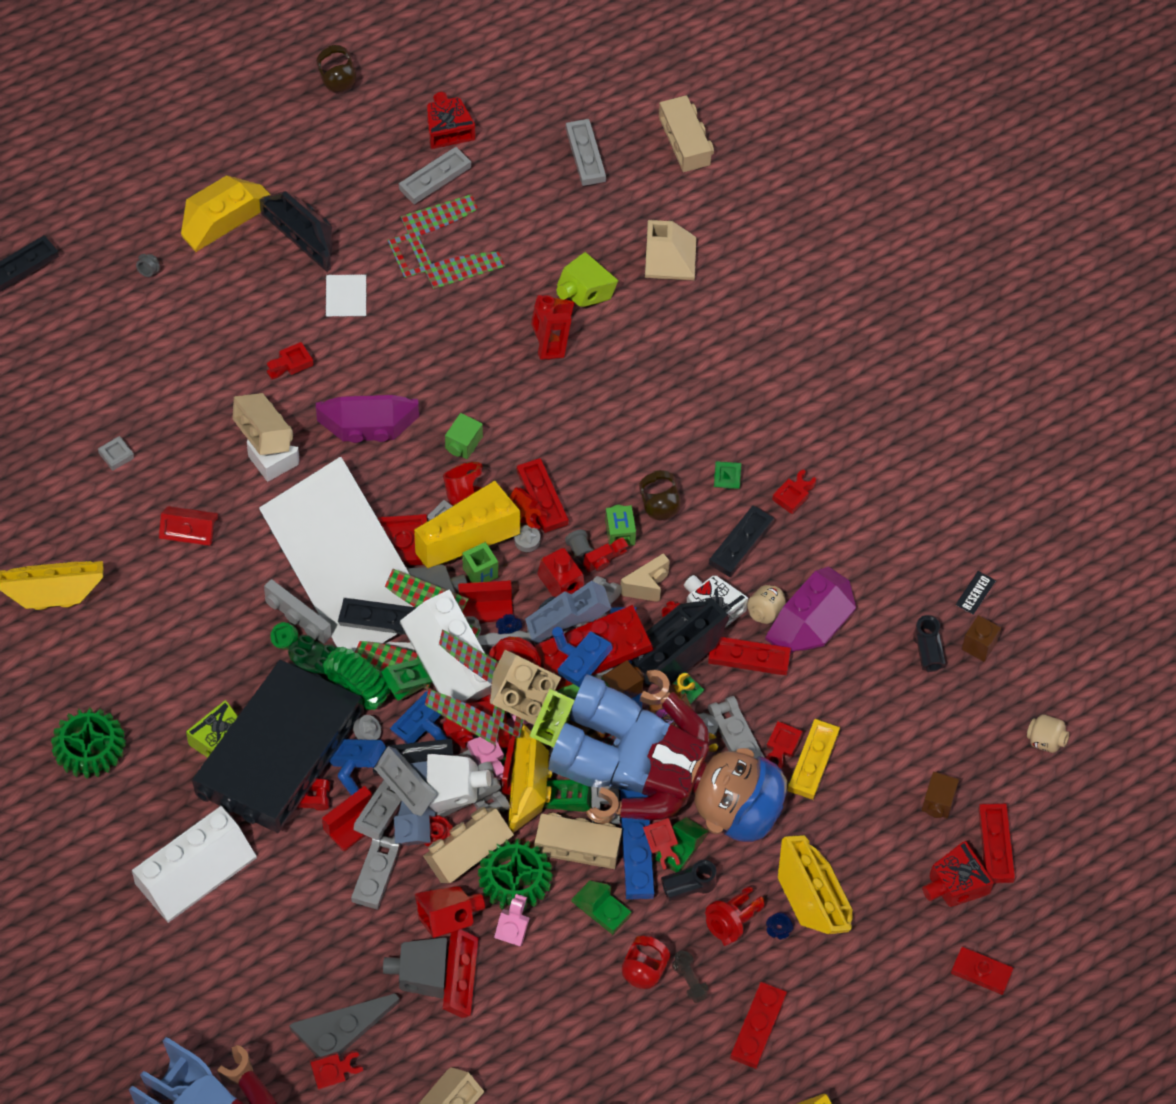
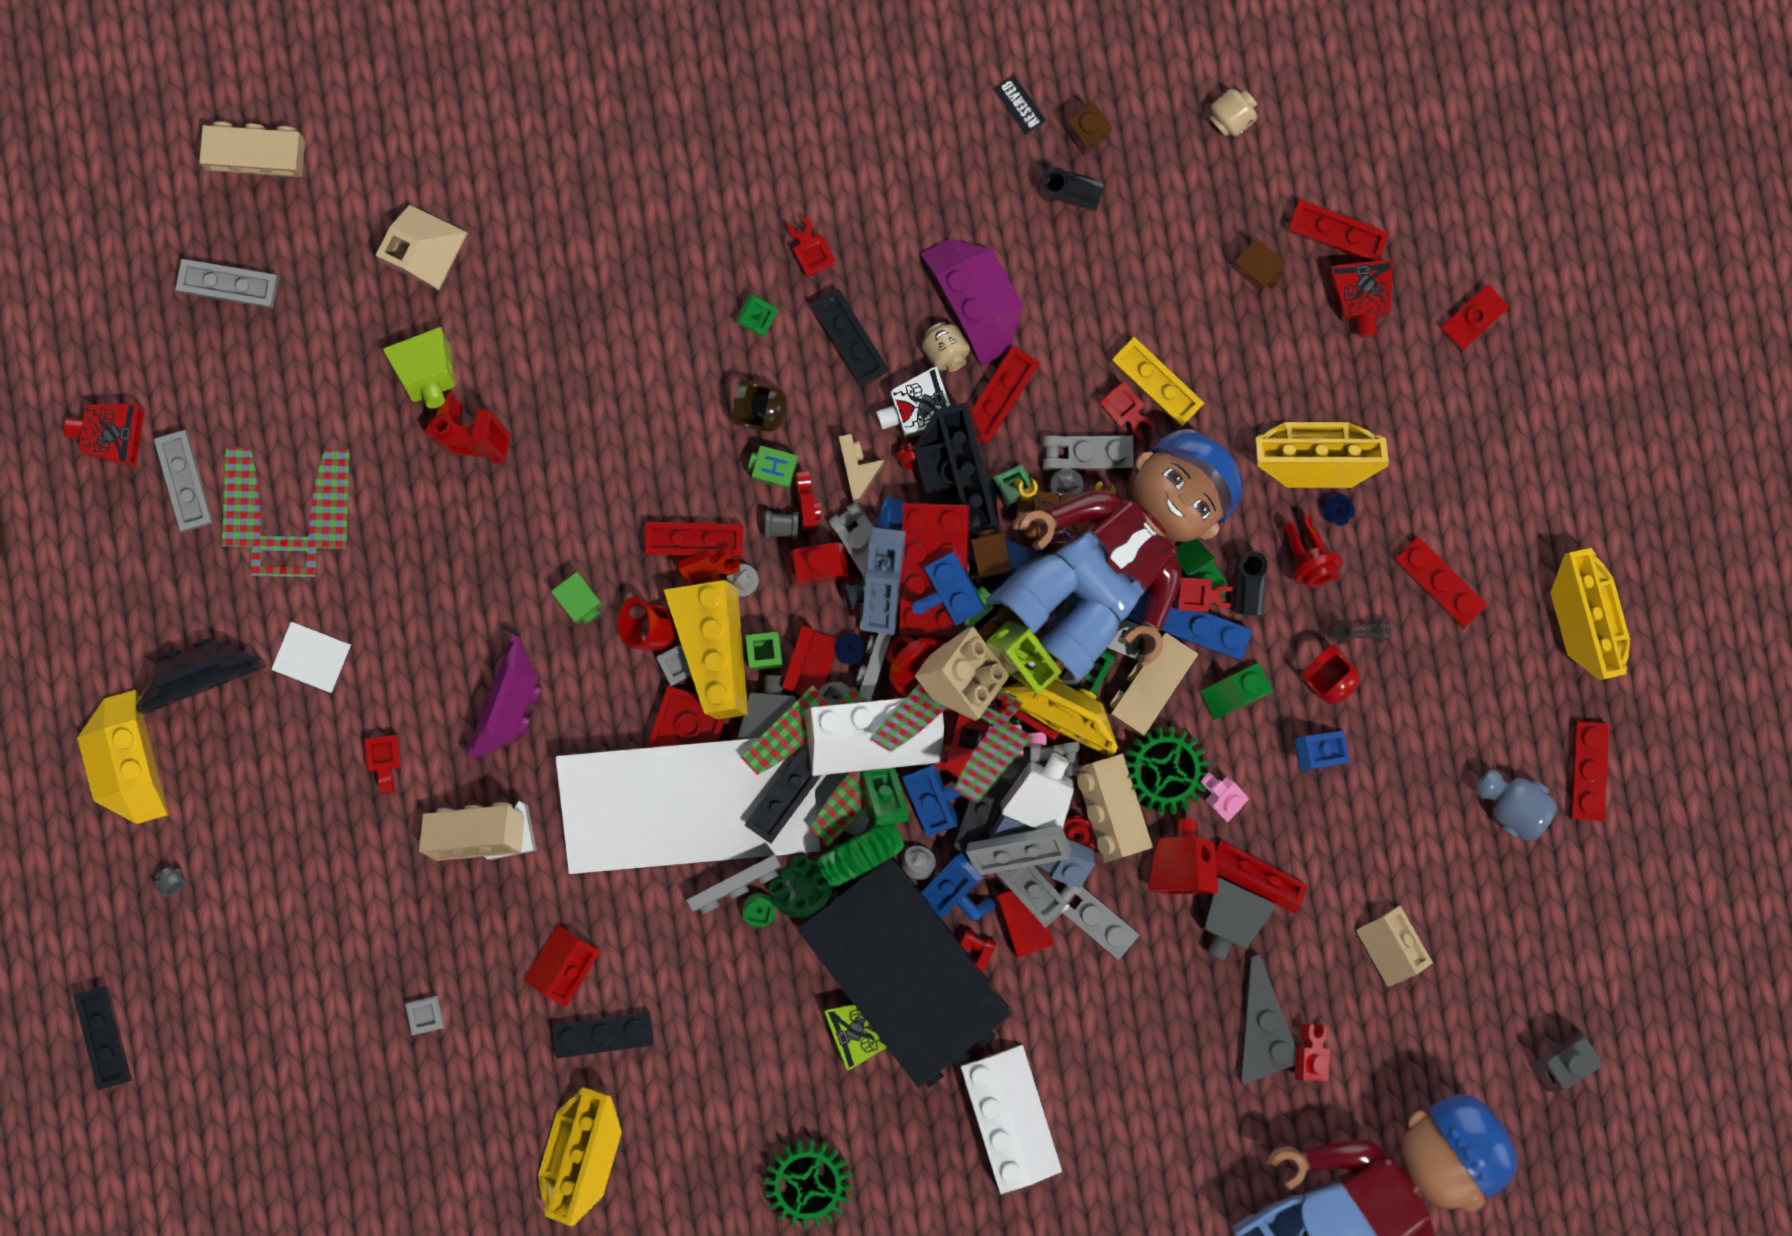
camera: 65 degrees left, 25 degrees up
(147, 570) = (603, 1035): none -> black plate
(581, 980) = (1321, 750): none -> blue slope

